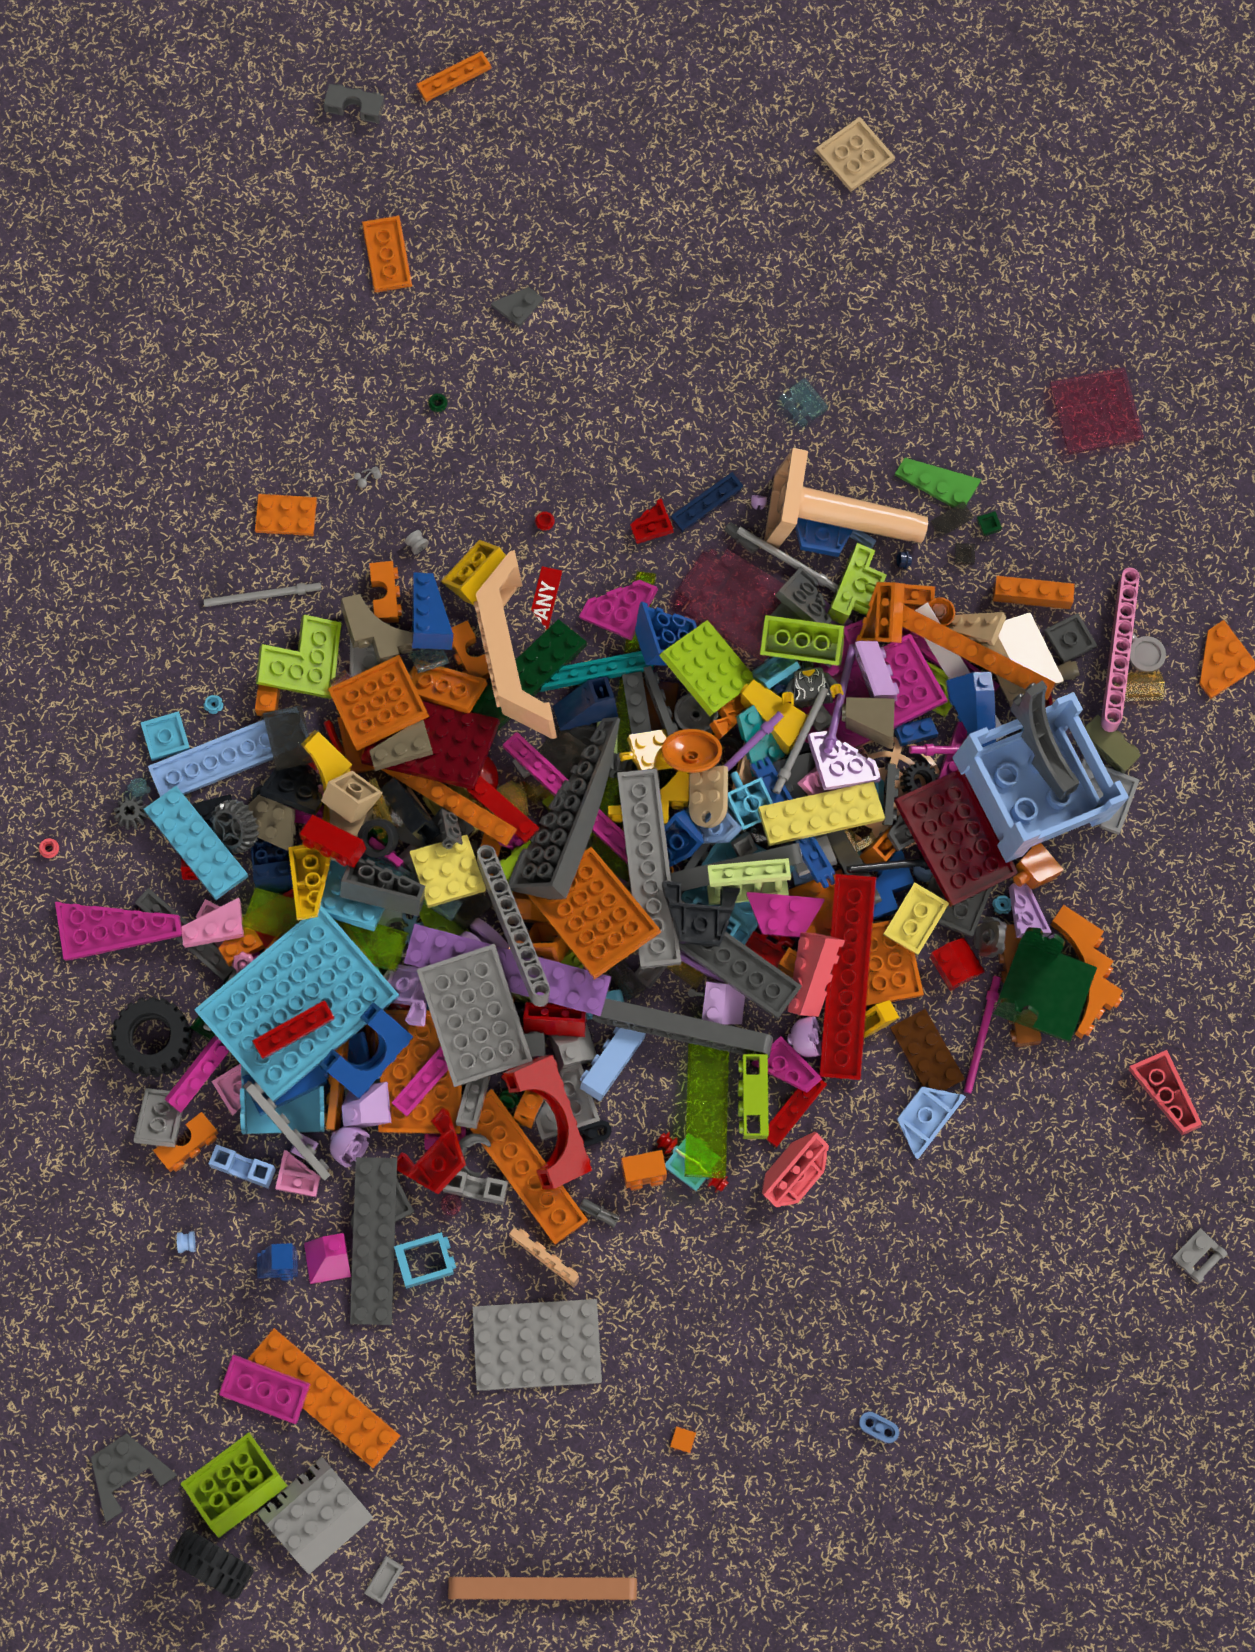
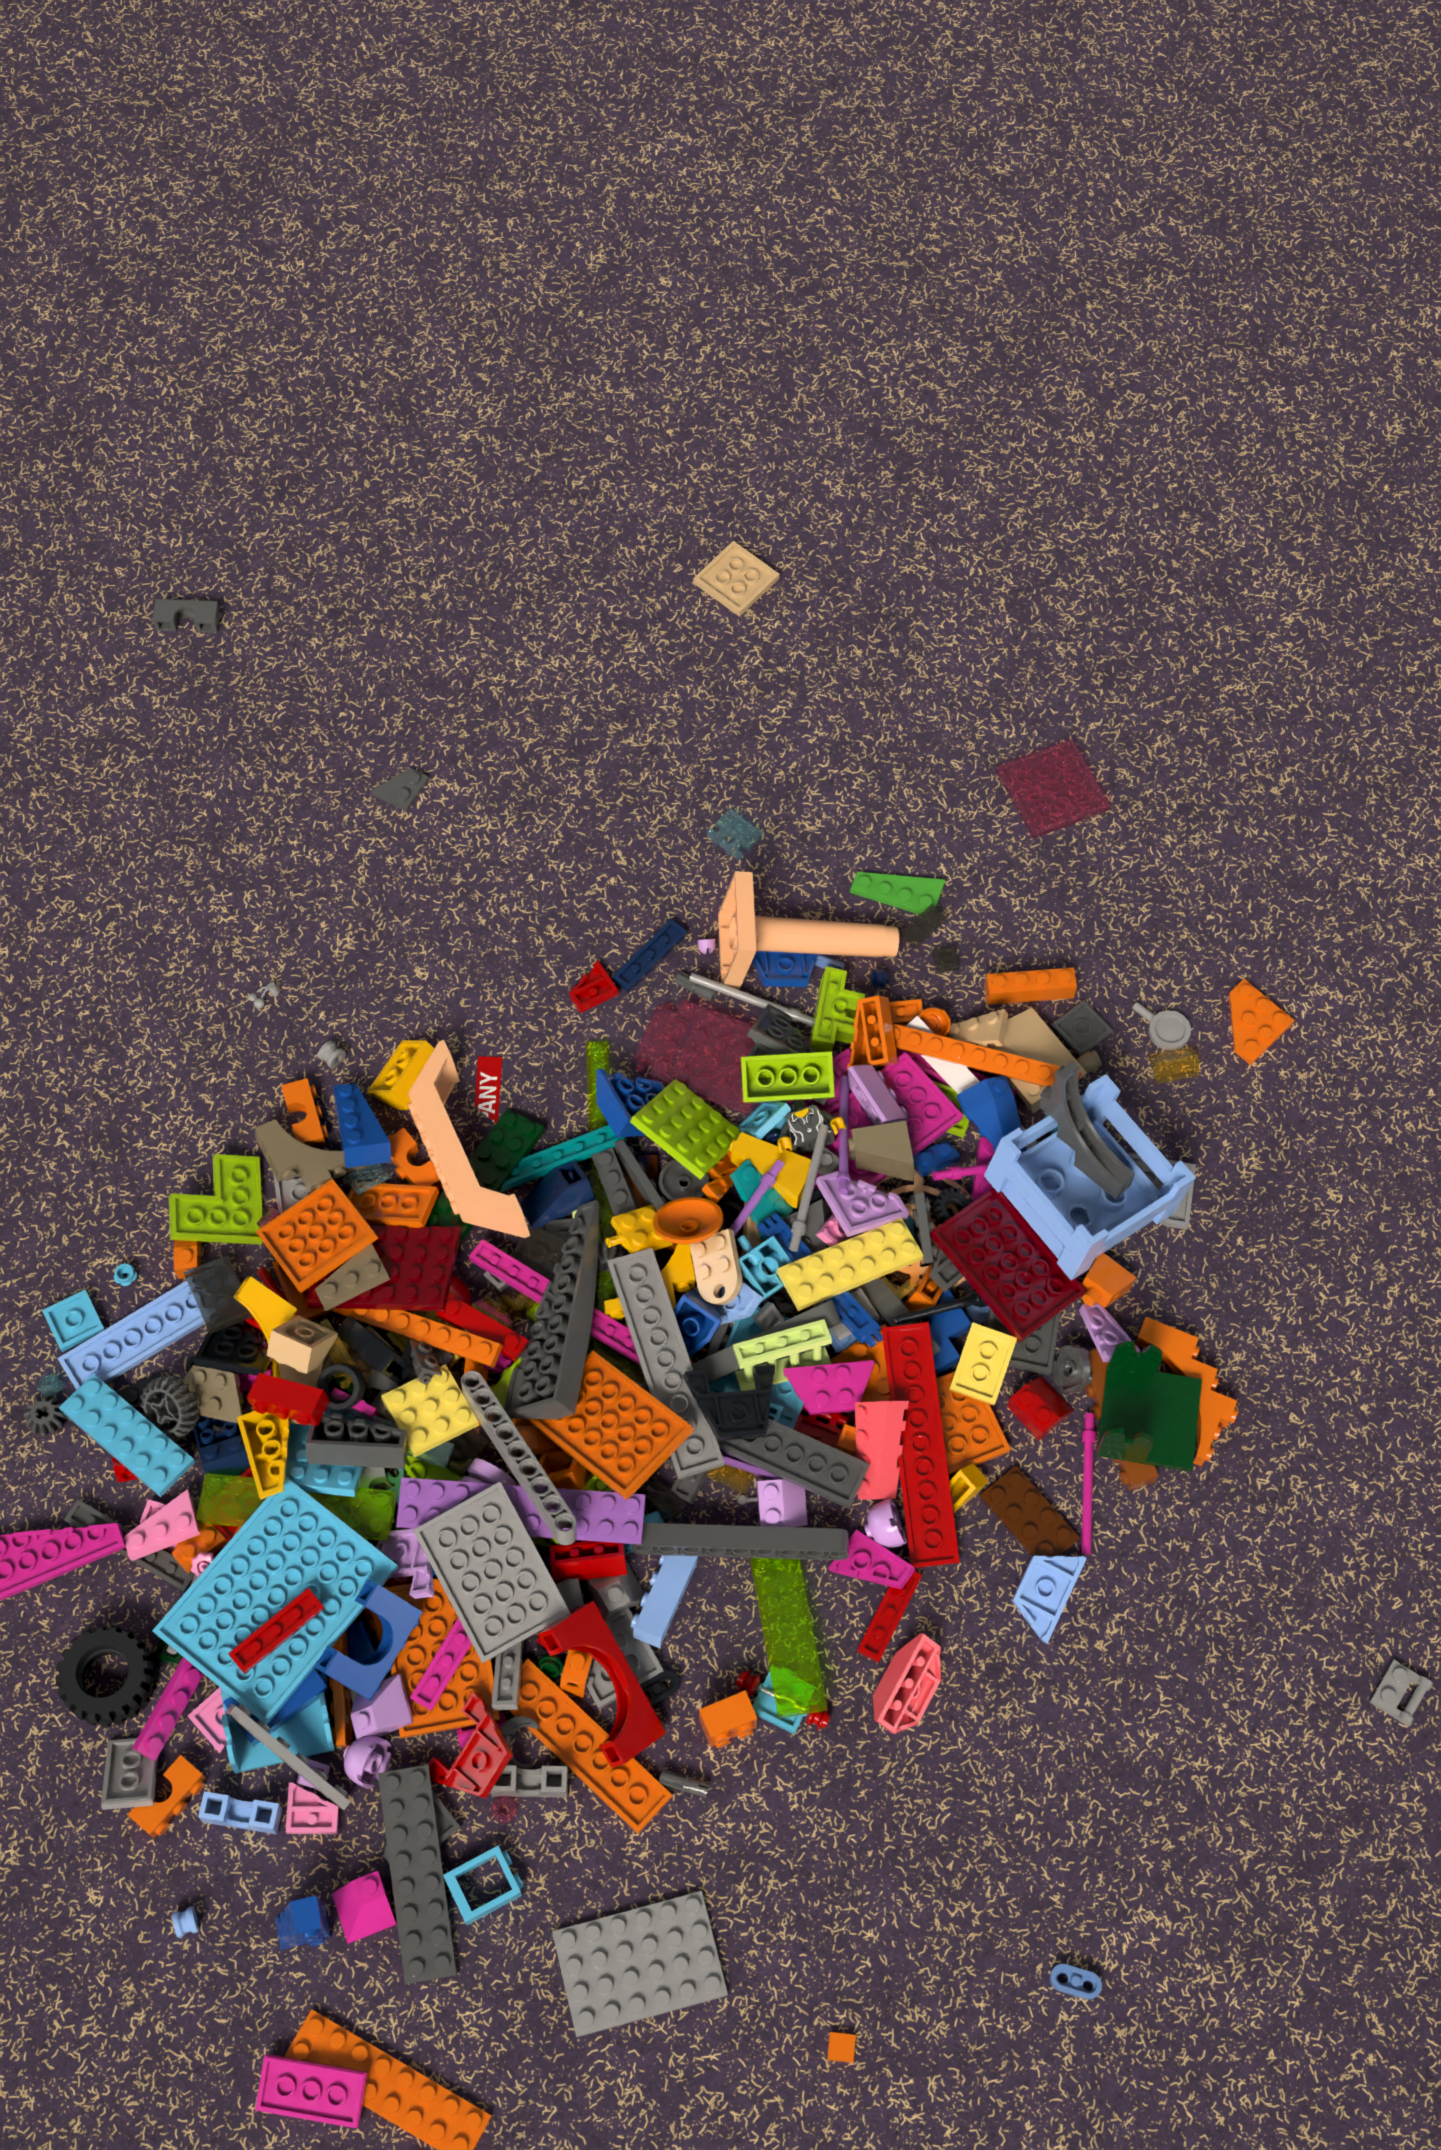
camera: 10 degrees left, 10 degrees down
(286, 514) = (177, 1052): orange plate -> none
(300, 589) = (206, 1129): light grey bar -> none
(387, 254) = (247, 761): orange tile -> none
(437, 397) = (327, 898): dark green plate -> none
(453, 76) = (290, 572): orange plate -> none
(539, 1252) = (637, 1855): light nougat wing -> none
(544, 521) = (472, 1007): red plate -> none
(619, 608) = (573, 1084): dark pink plate -> none
(754, 1096) = (840, 1605): lime piece -> none
(989, 523) = (964, 923): dark green plate -> none
(1007, 904) = (1080, 1327): medium azure plate -> none
(1112, 746) = (1166, 1137): olive brick -> none
(1118, 657) = (1135, 998): bright pink beam -> none
(1166, 1089) = (1315, 1505): coral wedge -> none

